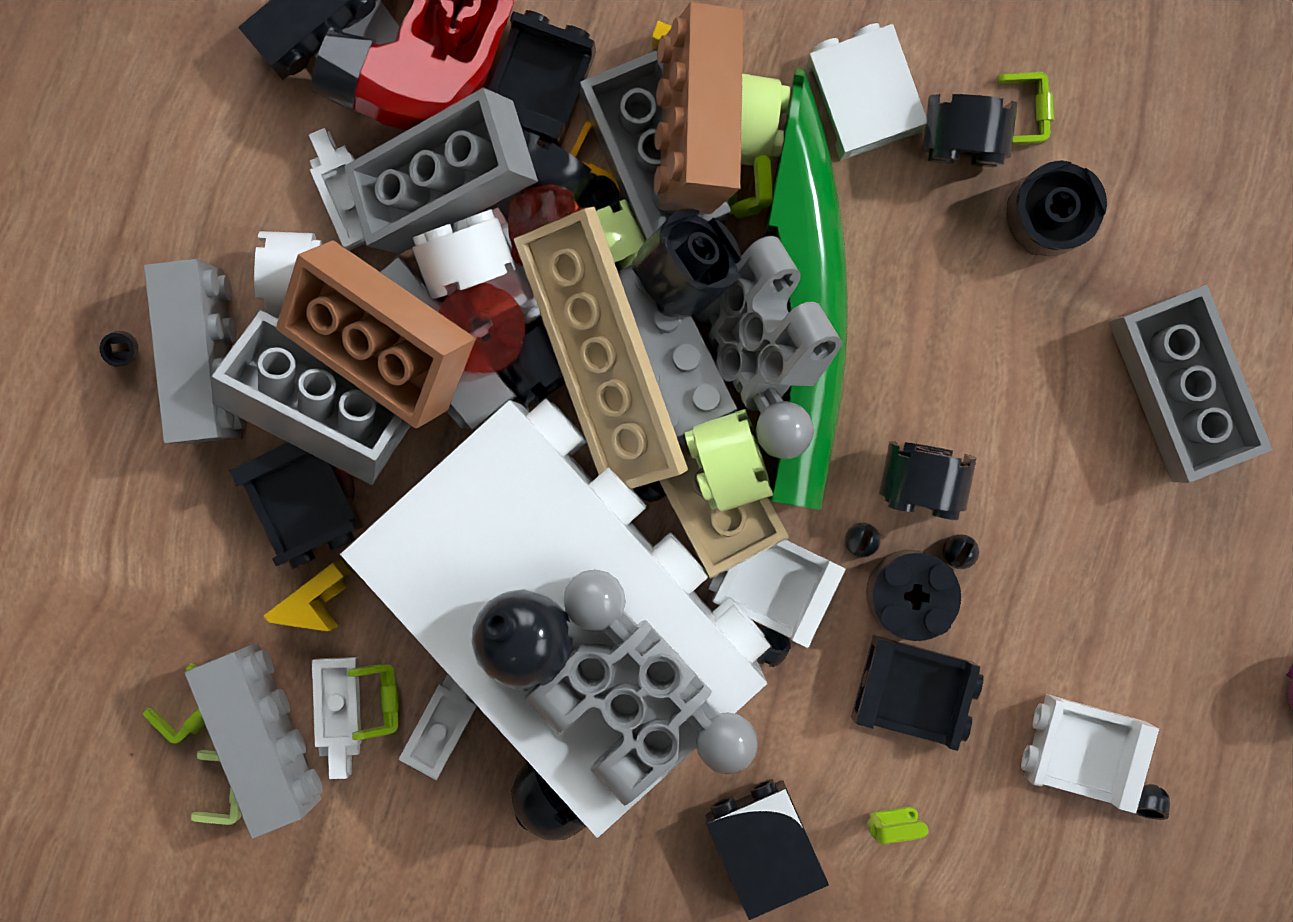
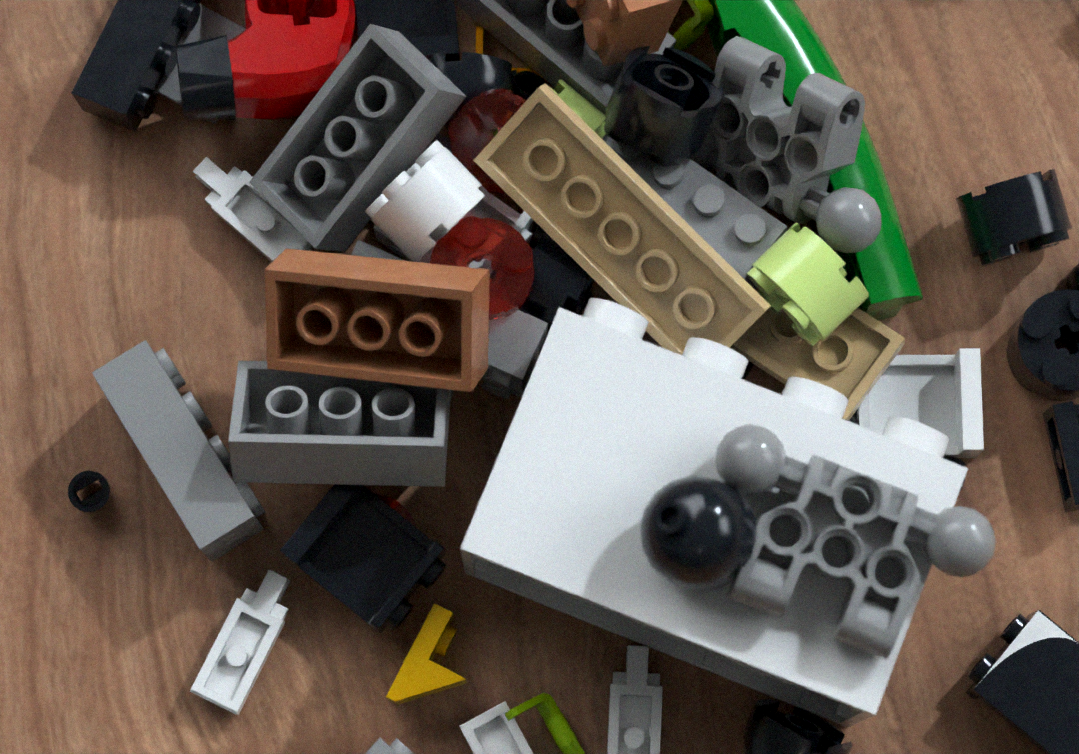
camera: 25 degrees left, 10 degrees down
(181, 521) = (243, 645): none -> white hinge
(275, 265) = (235, 317): white brick -> none
(854, 536) = (970, 318): black hinge -> none

